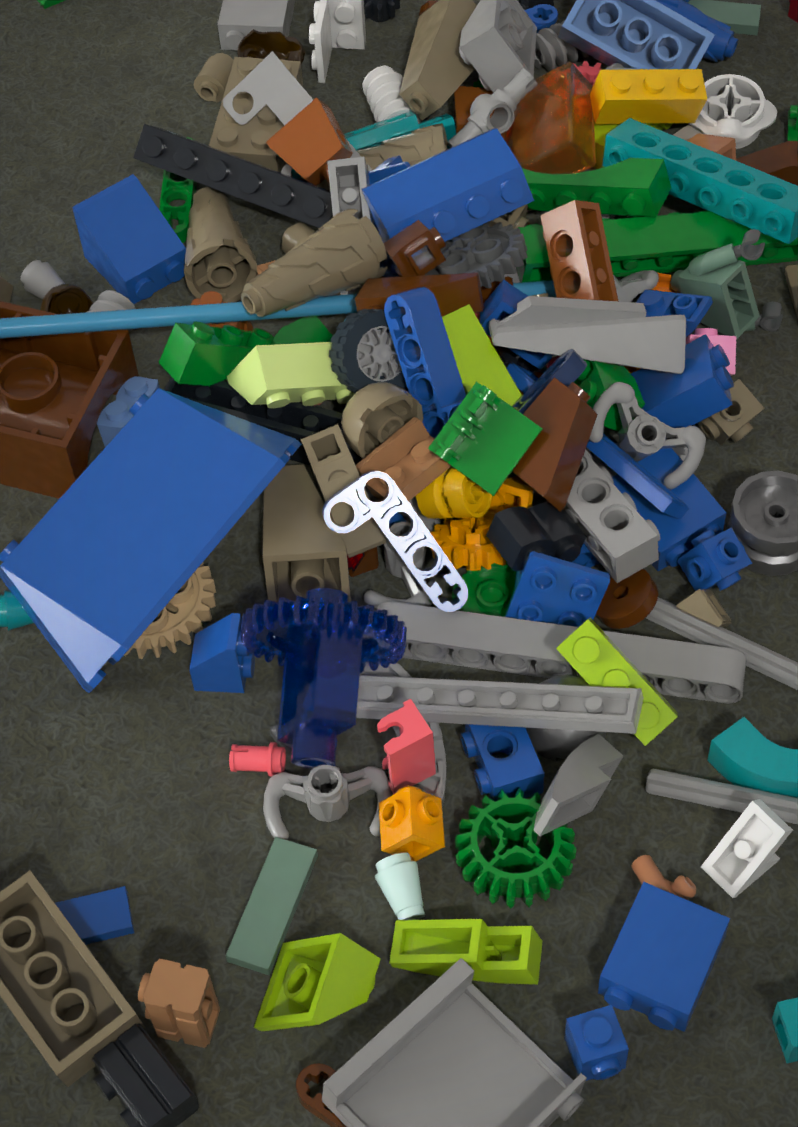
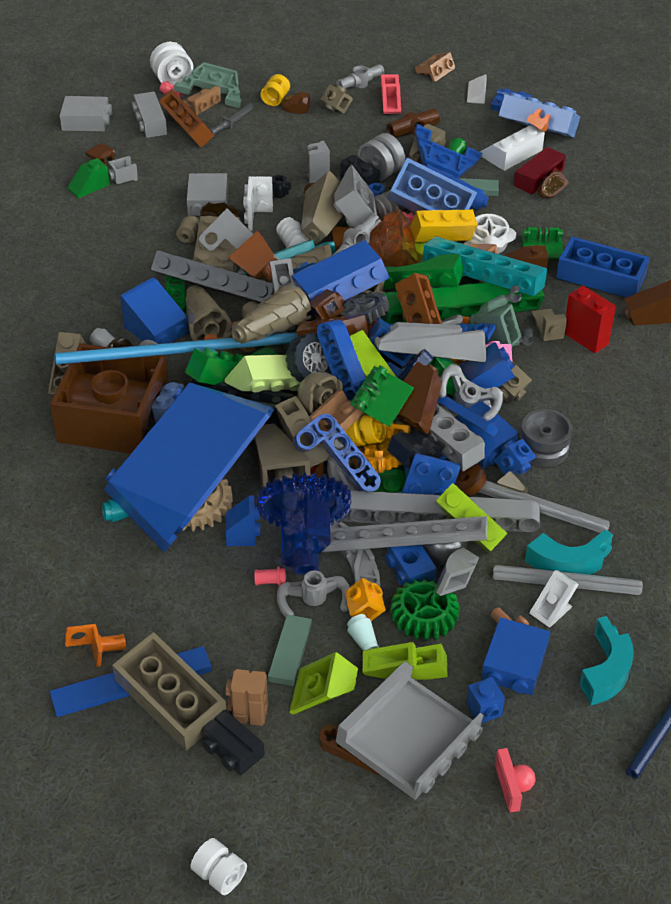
camera: 10 degrees left, 10 degrees down
(412, 753) = (360, 557): coral hinge -> none

